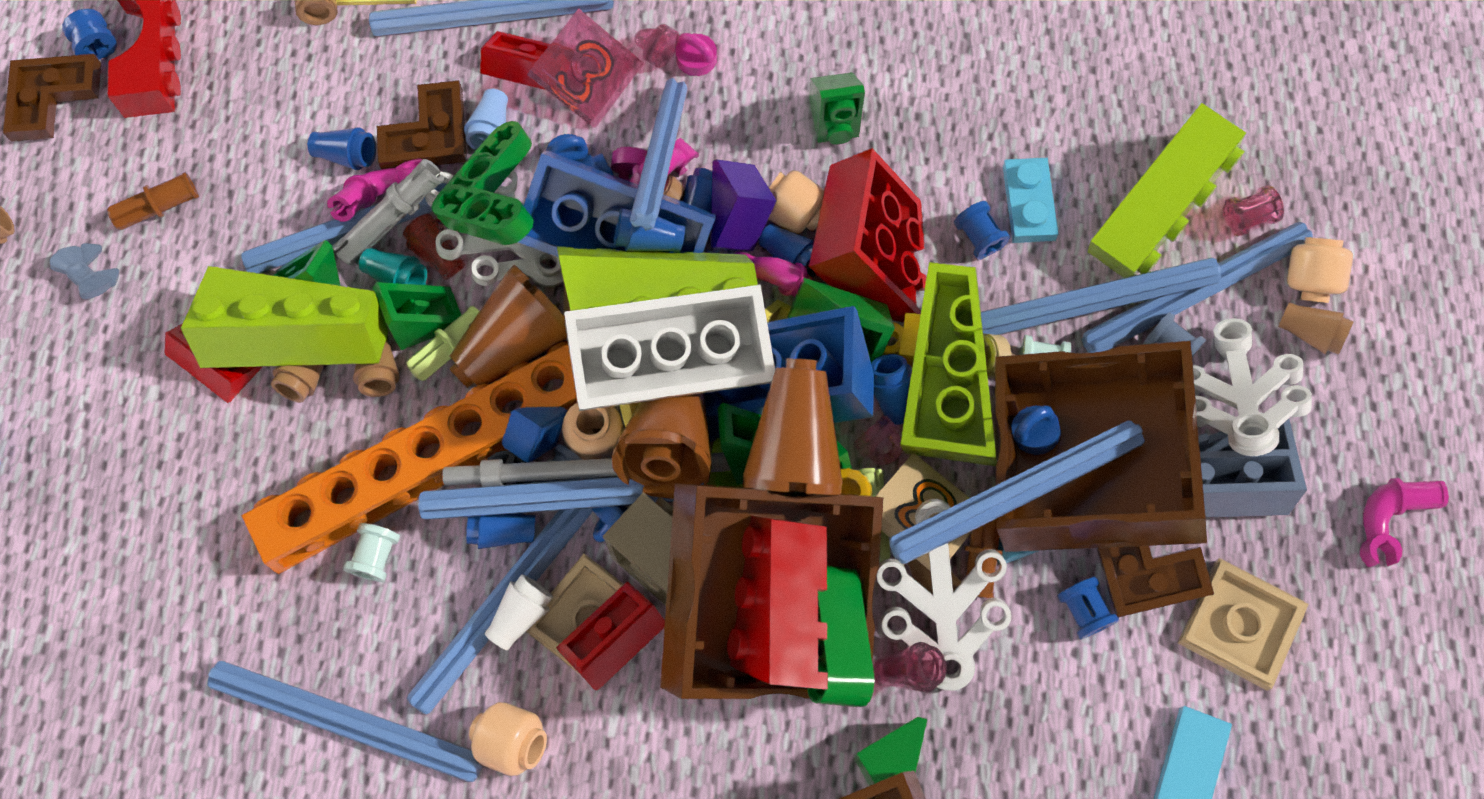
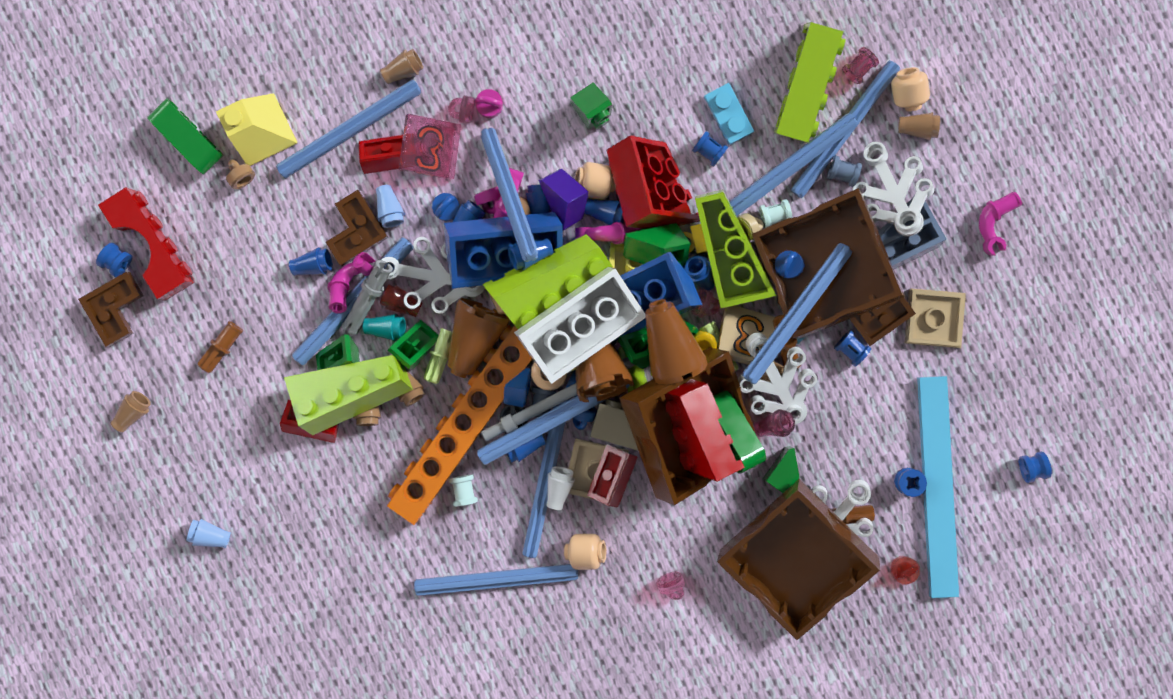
camera: 25 degrees left, 20 degrees up
(75, 263) = (198, 405): sand blue piece -> none
(469, 198) = (414, 266): green beam -> none

